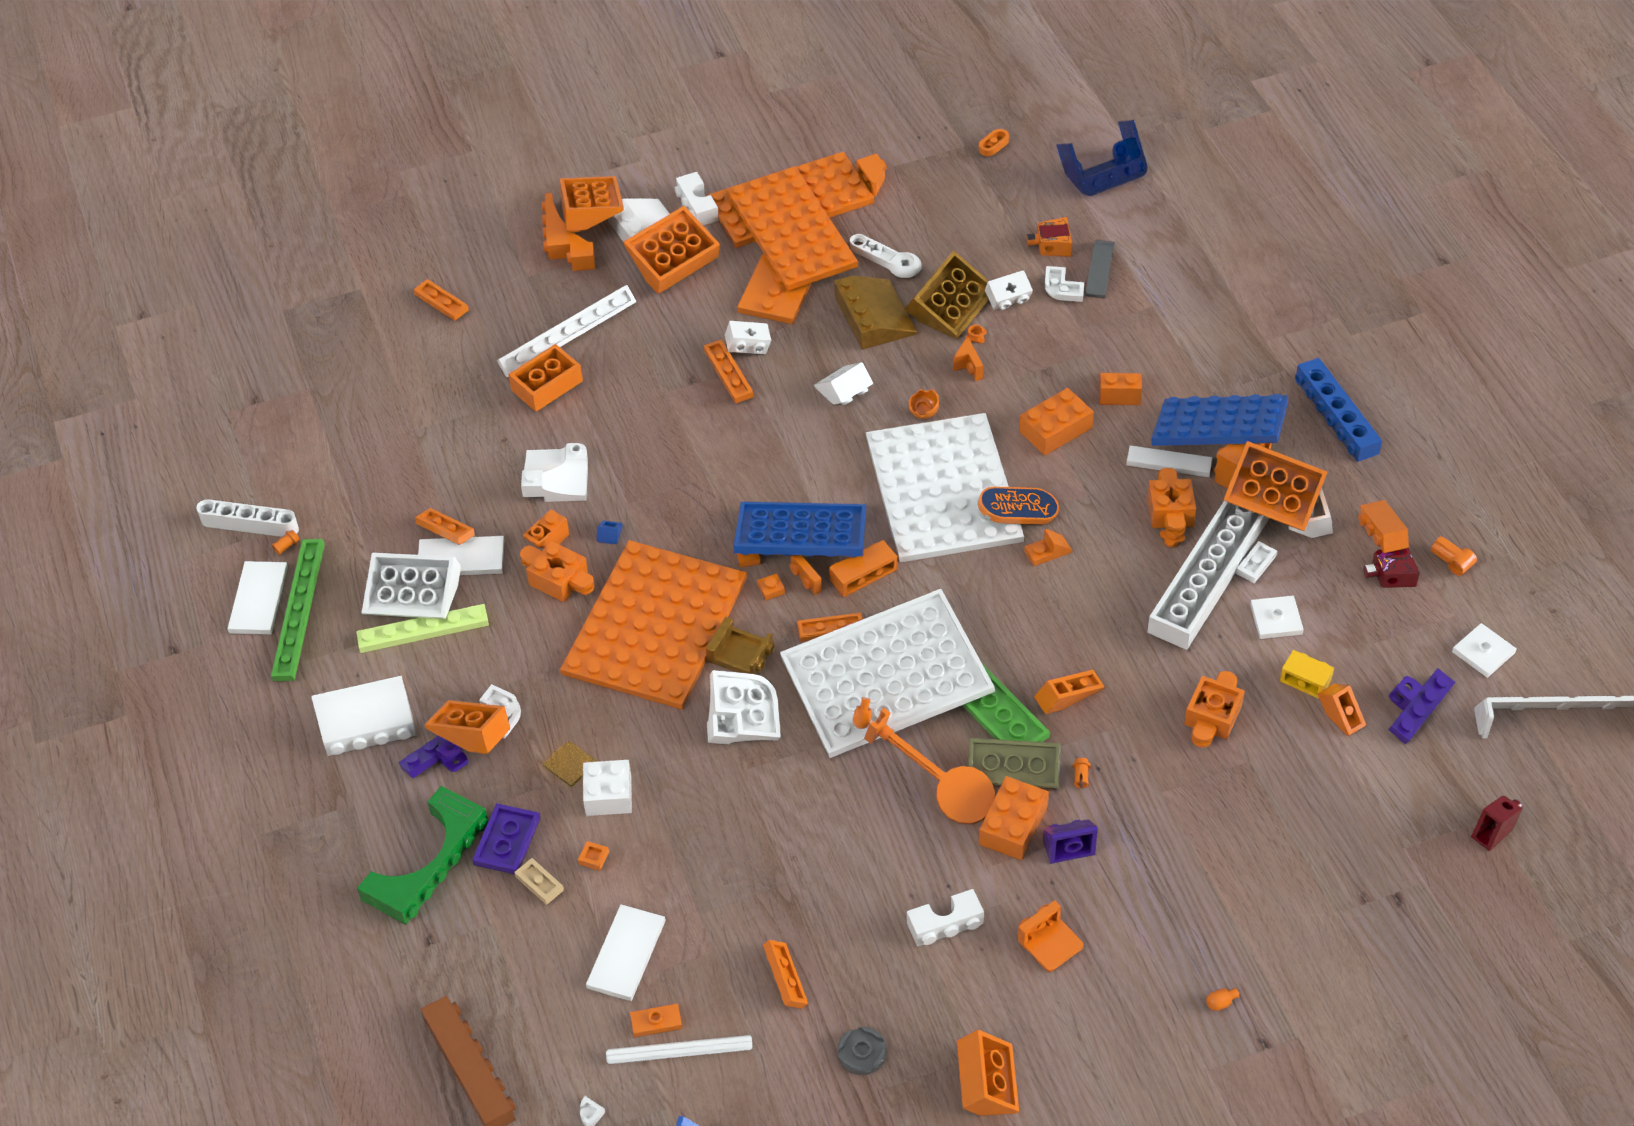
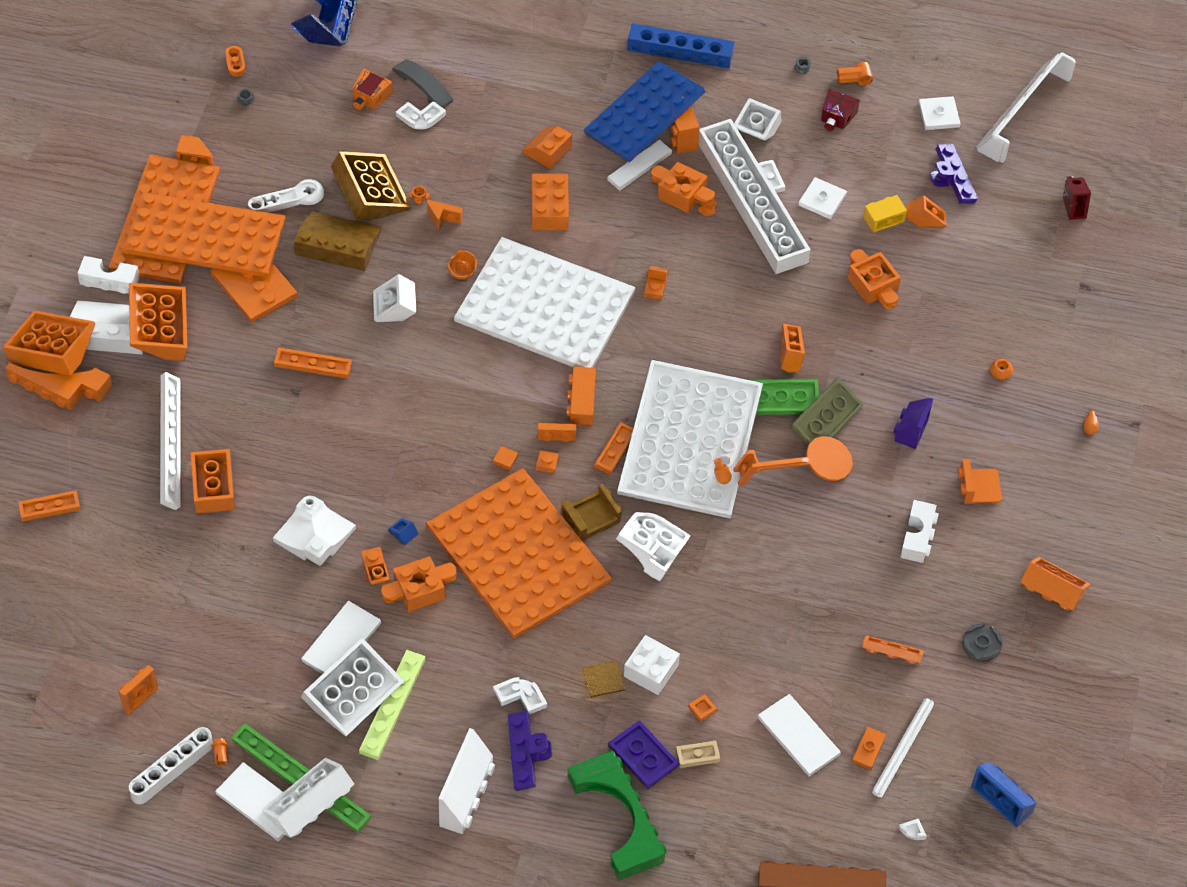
camera: 60 degrees left, 5 degrees up
(273, 621) = (308, 797): none -> white slope
(299, 452) = (138, 689): none -> orange plate
(444, 526) = (306, 633): orange plate -> none
(470, 725) = (531, 716): orange slope -> none
(747, 337) = (295, 329): white brick -> none
(800, 529) = (518, 409): blue plate -> none
(963, 170) = (245, 97): none -> dark grey plate
(1008, 290) = (399, 148): white brick -> none
(1013, 818) = (870, 443): orange brick -> none
(1018, 505) = (609, 271): tile -> none
(1081, 768) = (861, 384): orange pin -> none
(1215, 887) = (1001, 369): none -> orange plate
(1275, 486) = (735, 119): orange slope -> none
(1384, 526) = (807, 90): orange brick -> none
(1427, 509) = (805, 68): none -> dark grey bush

